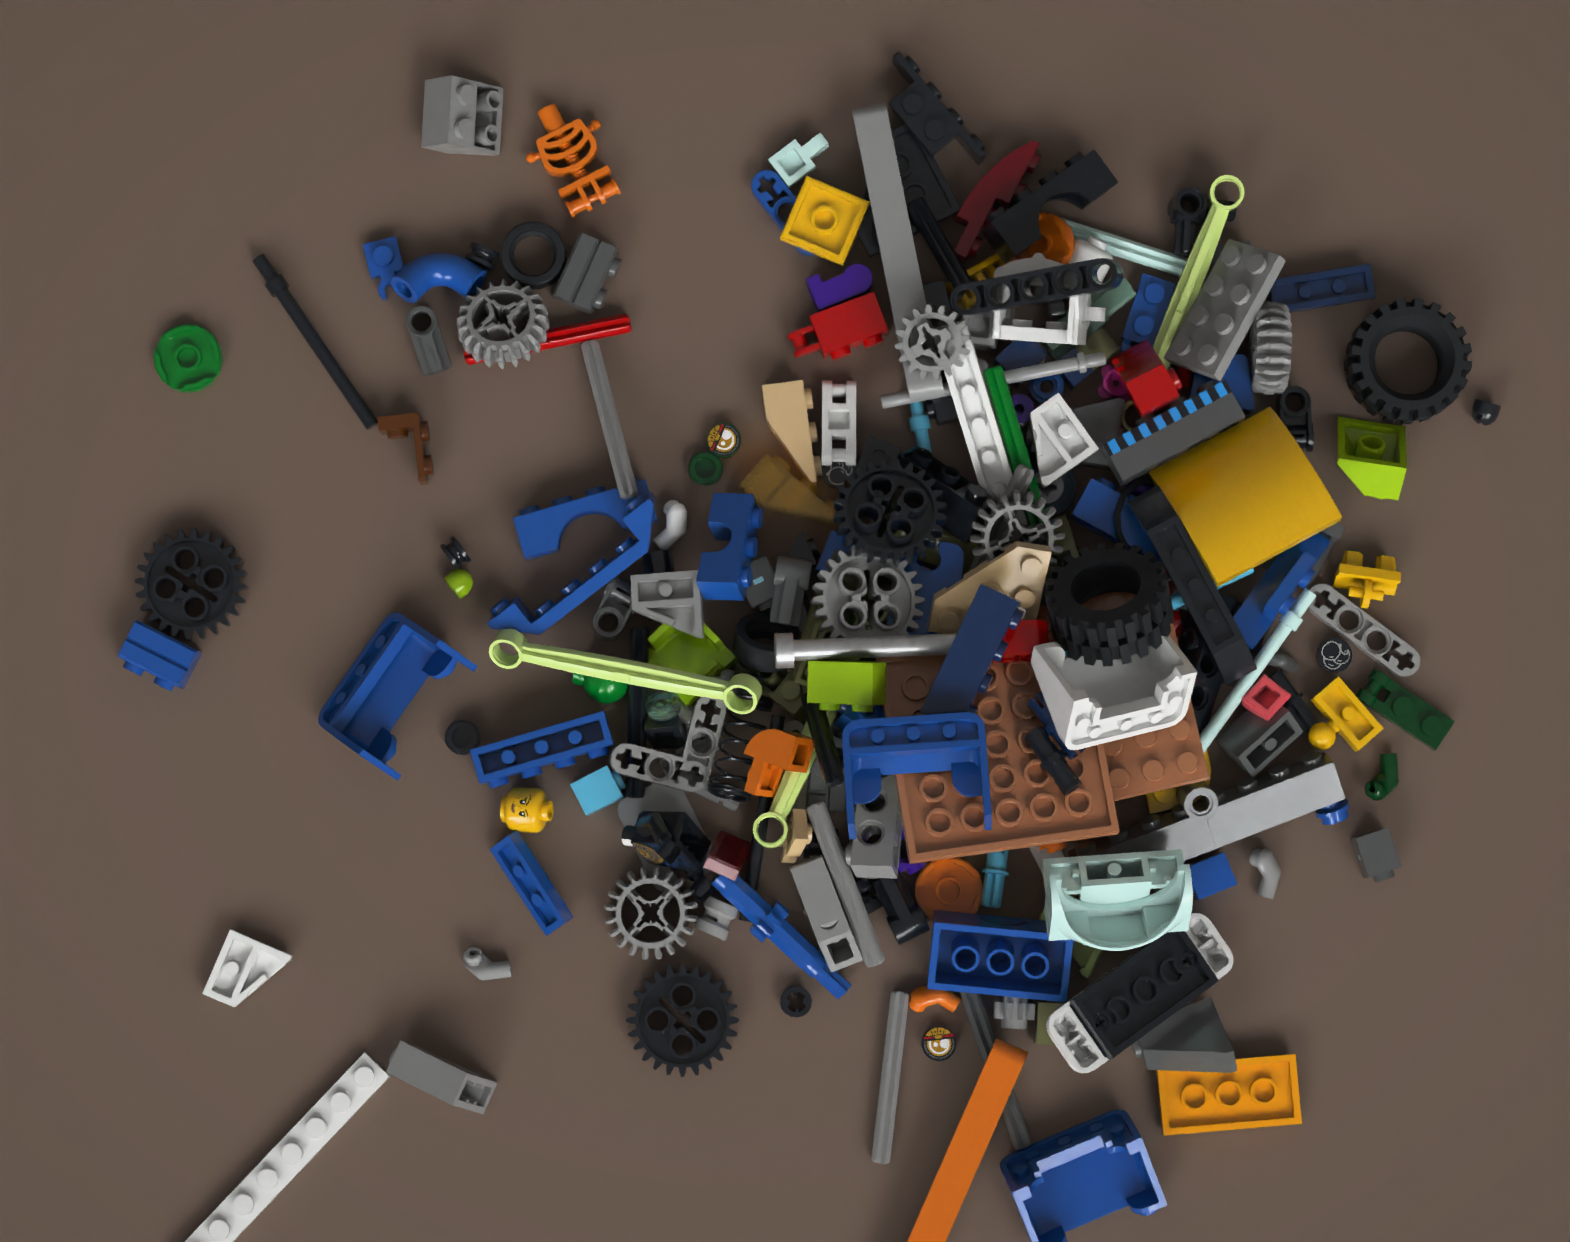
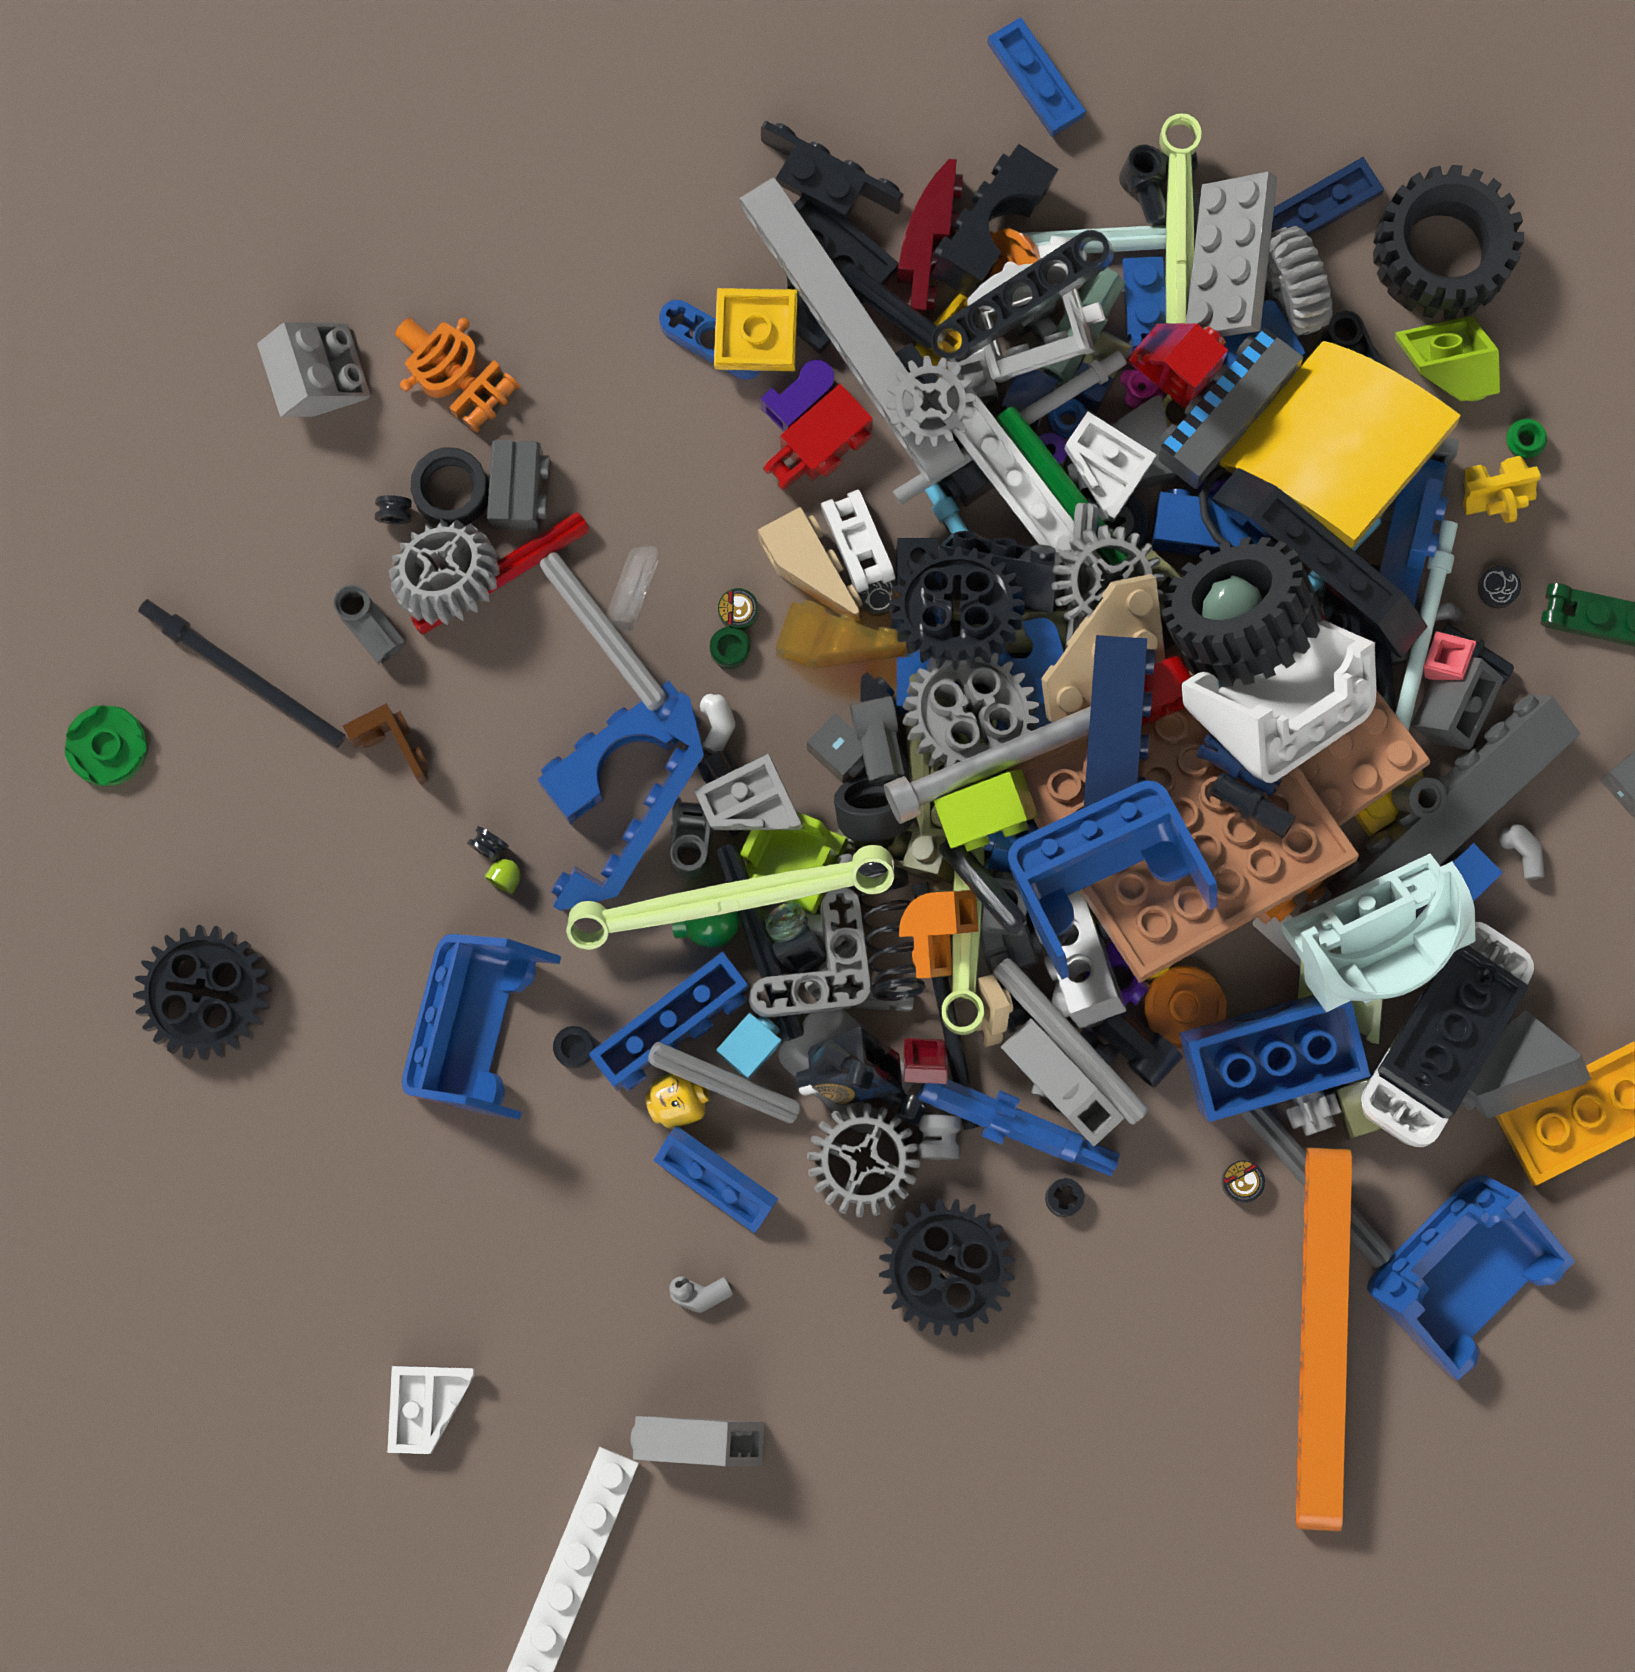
camera: 20 degrees left, 5 degrees down
(158, 655) = (194, 1086): blue brick -> none
(383, 261) = (287, 559): blue plate -> none
(437, 270) = (349, 543): blue cylinder -> none
(566, 812) = (723, 1082): none -> light grey axle
(647, 391) = (633, 587): none -> clear slope
(728, 571) = (800, 744): blue arch -> none
(795, 162) = (698, 280): light aqua plate -> none
(890, 1077) = (1204, 1241): light grey axle -> none
(923, 997) = (1209, 1133): orange arm -> none
(994, 879) = (1230, 971): medium azure axle -> none
(1103, 592) = (1230, 599): none -> sand green hair
(1133, 95) = (1036, 77): none -> blue plate
(1333, 813) = (1572, 756): blue plate -> none
(1344, 715) = (1540, 647): yellow plate -> none
(1365, 625) = (1519, 541): light grey beam -> none
(1386, 780) = (1613, 698): dark green arm -> none
(1415, 539) = (1534, 431): none -> green plate
(1484, 412) = (1550, 263): black hinge -> none

